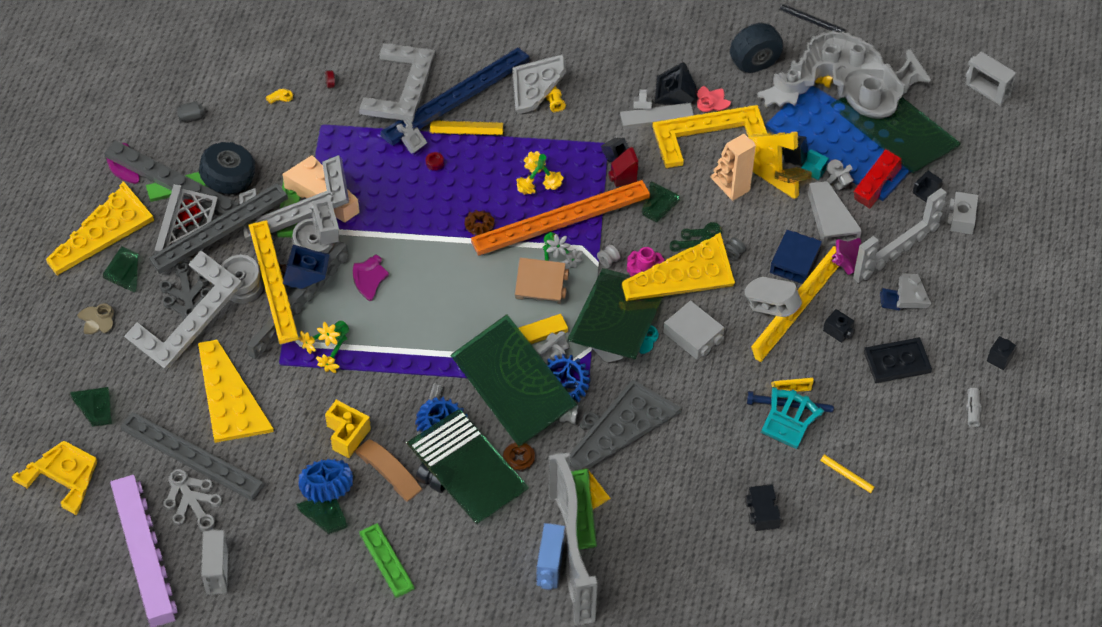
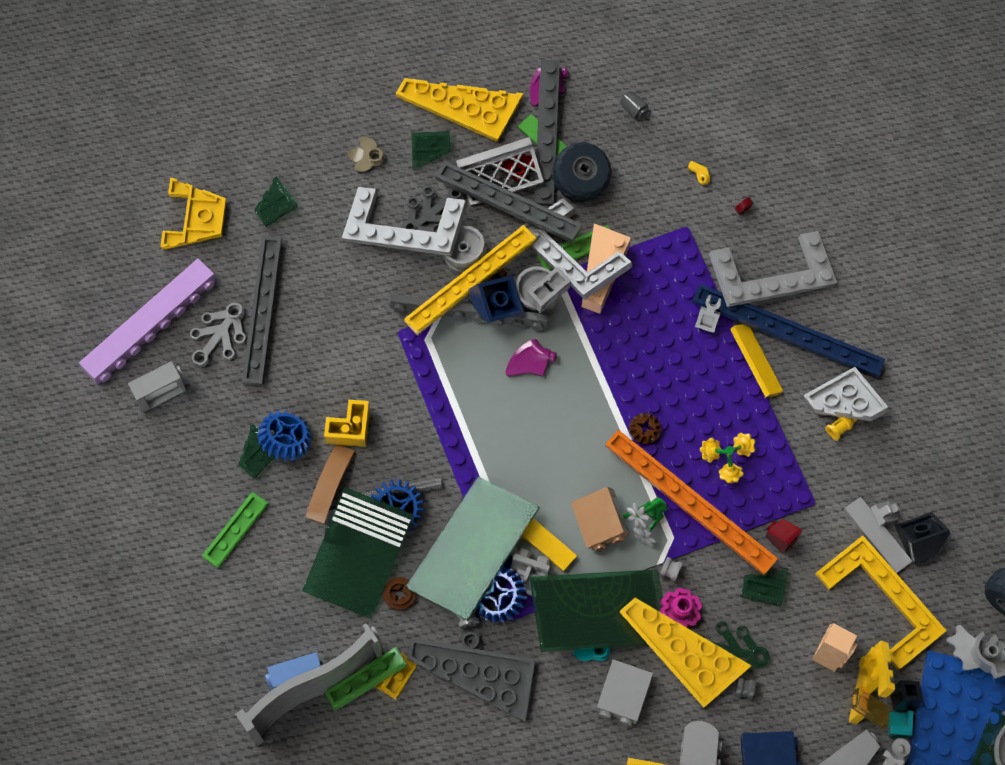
camera: 65 degrees right, 15 degrees up
(230, 402) = (335, 312): yellow wing -> none
(330, 334) = (450, 362): yellow plant -> none
(434, 161) = (696, 351): dark red tile -> none
(614, 148) = (805, 515): black brick -> none
(714, 99) = (933, 581): coral plate -> none

